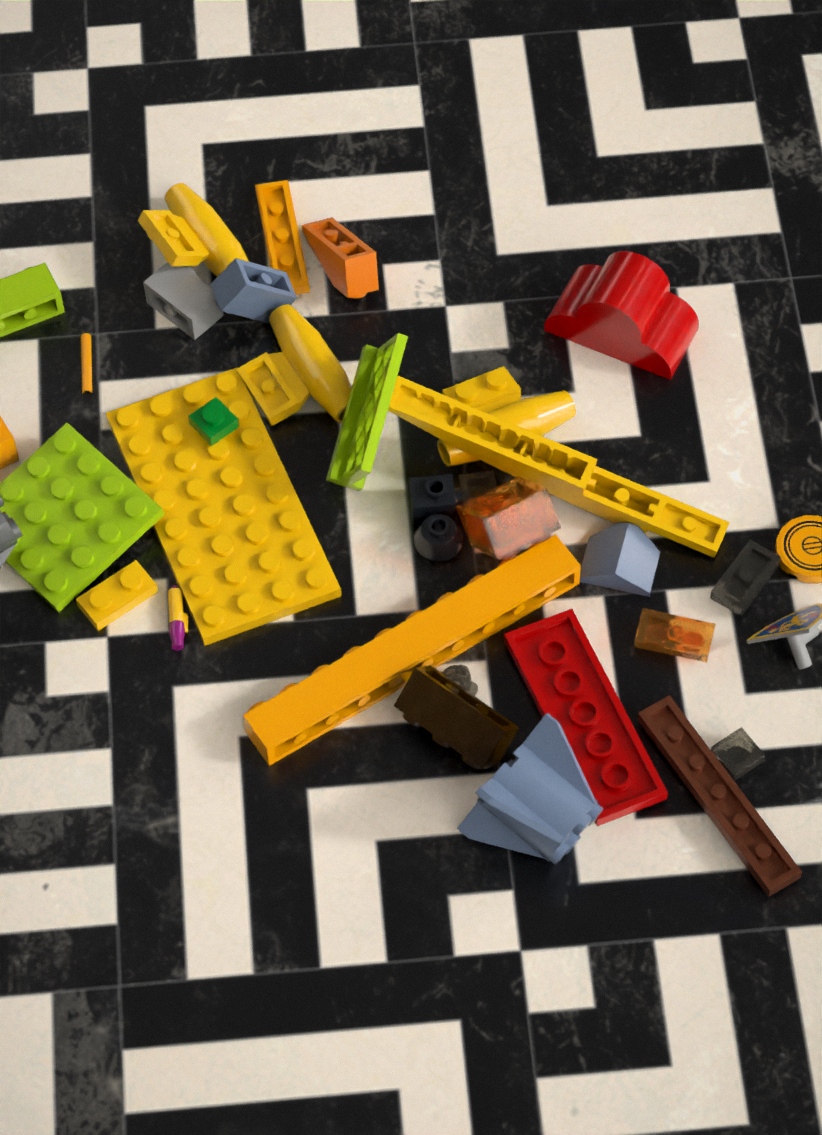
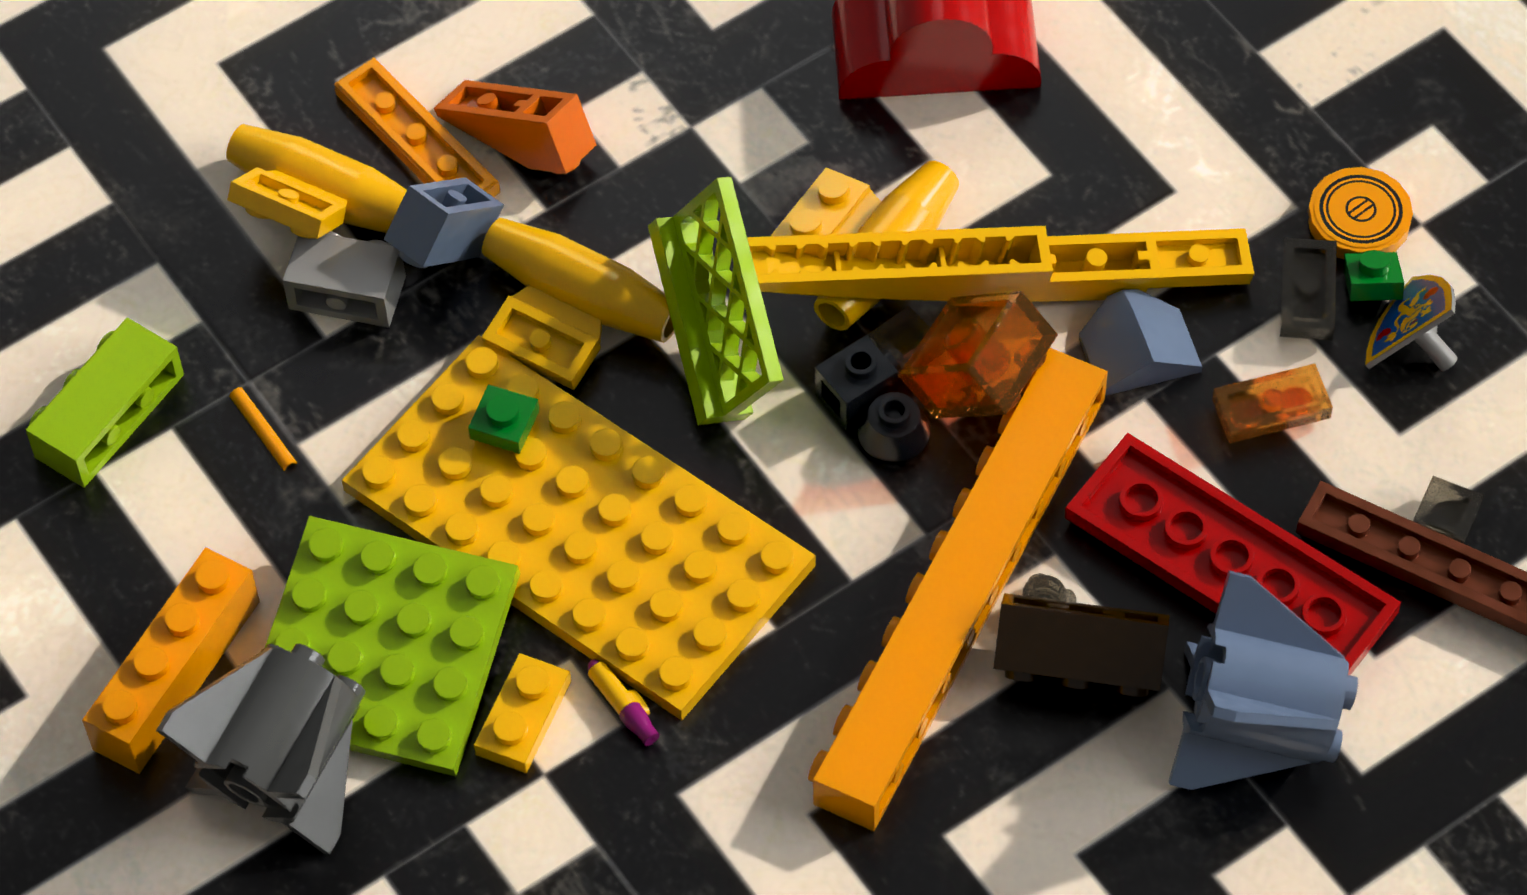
camera: 30 degrees left, 0 degrees up
(792, 590) = (1373, 276): none -> green plate

